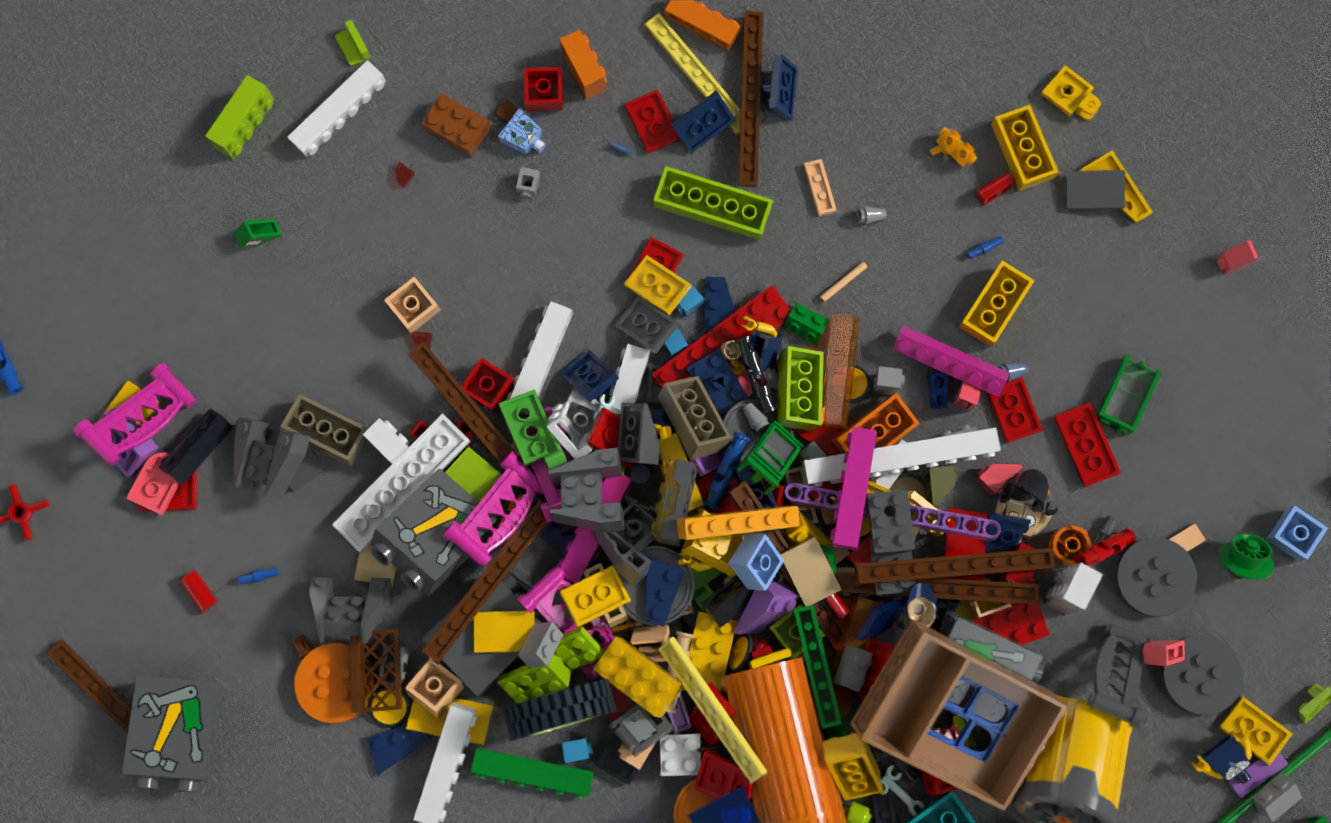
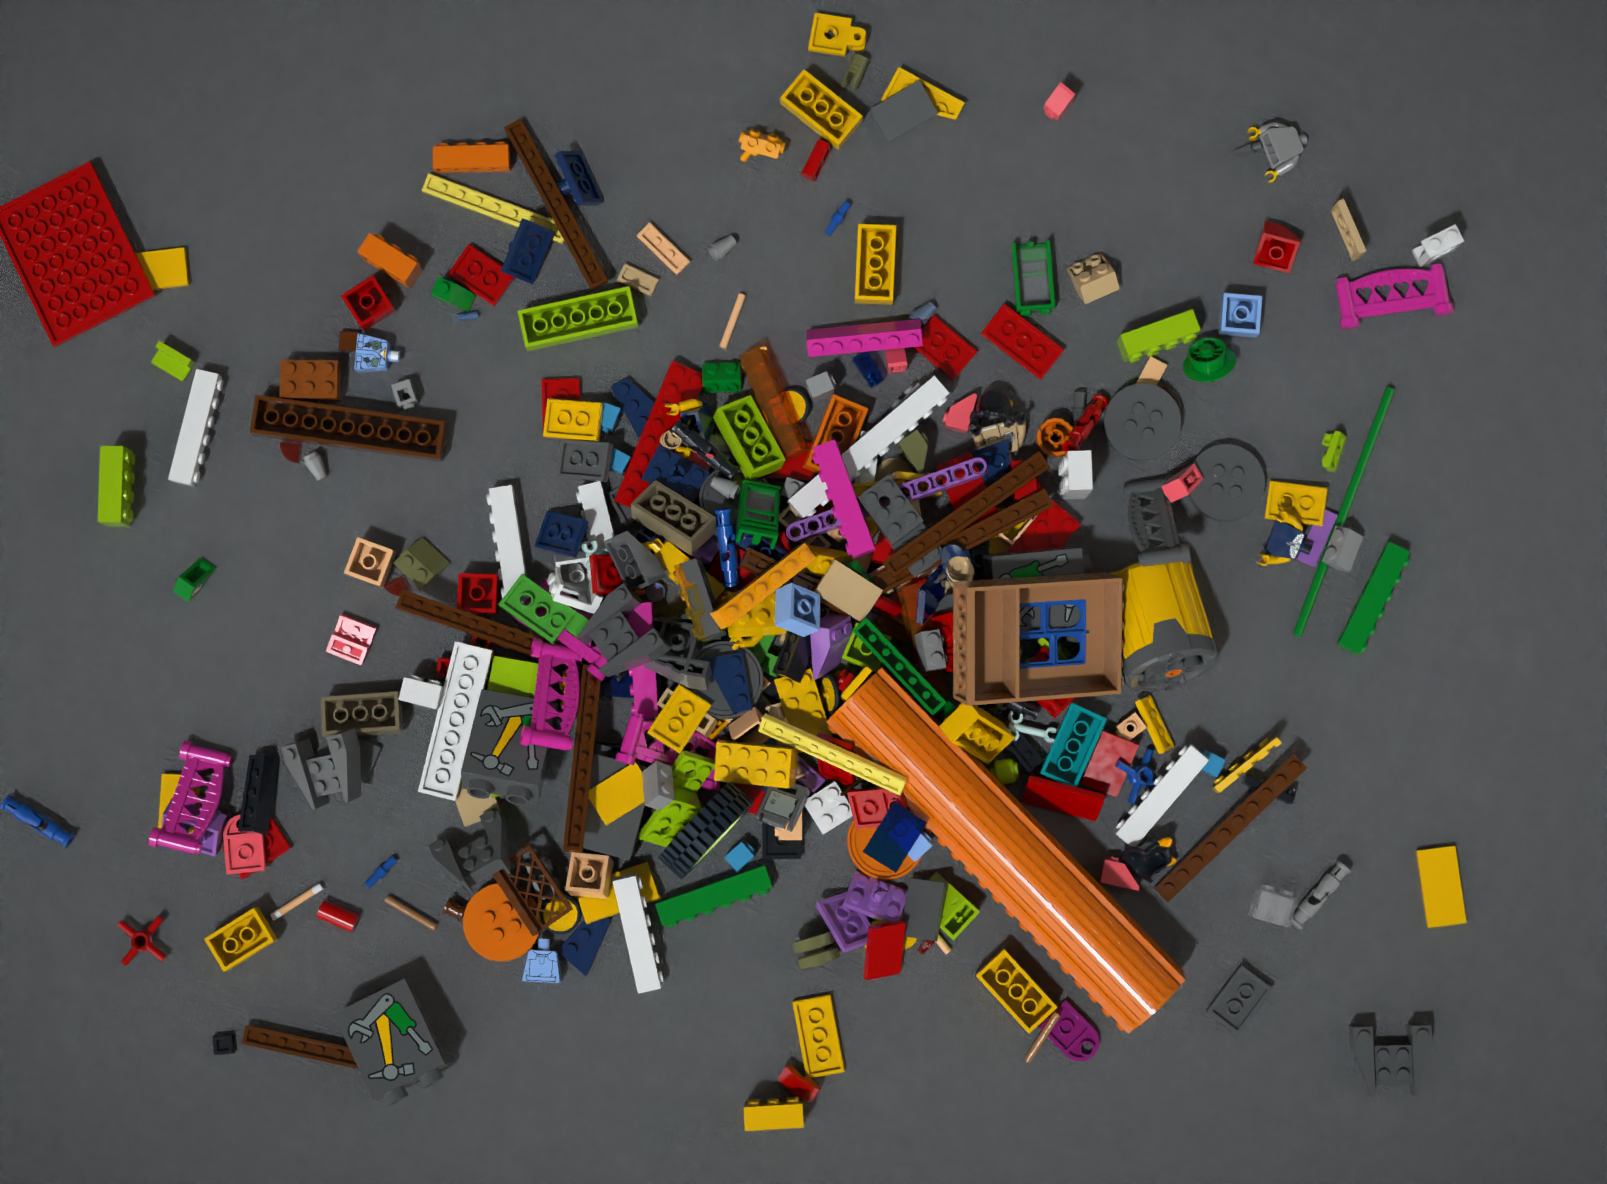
camera: 25 degrees left, 5 degrees up
(32, 644) = (223, 1044): none -> black tile
(103, 562) = (241, 939): none -> yellow brick
(171, 558) = (295, 902): none -> light nougat bar
(262, 626) = (410, 912): none -> medium nougat bar
(346, 742) = (542, 964): none -> light blue torso
(357, 361) = (351, 639): none -> slope
(417, 196) = (315, 465): none -> light grey cone
(455, 332) = (421, 563): none -> olive slope
(464, 182) = (348, 428): none -> reddish brown brick
(618, 122) = (452, 294): none -> green slope
(782, 201) = (637, 280): none -> tan tile
(1072, 132) = (856, 68): none -> olive hinge
(1182, 426) = (1093, 278): none -> tan slope
(1214, 510) = (1157, 336): none -> lime brick

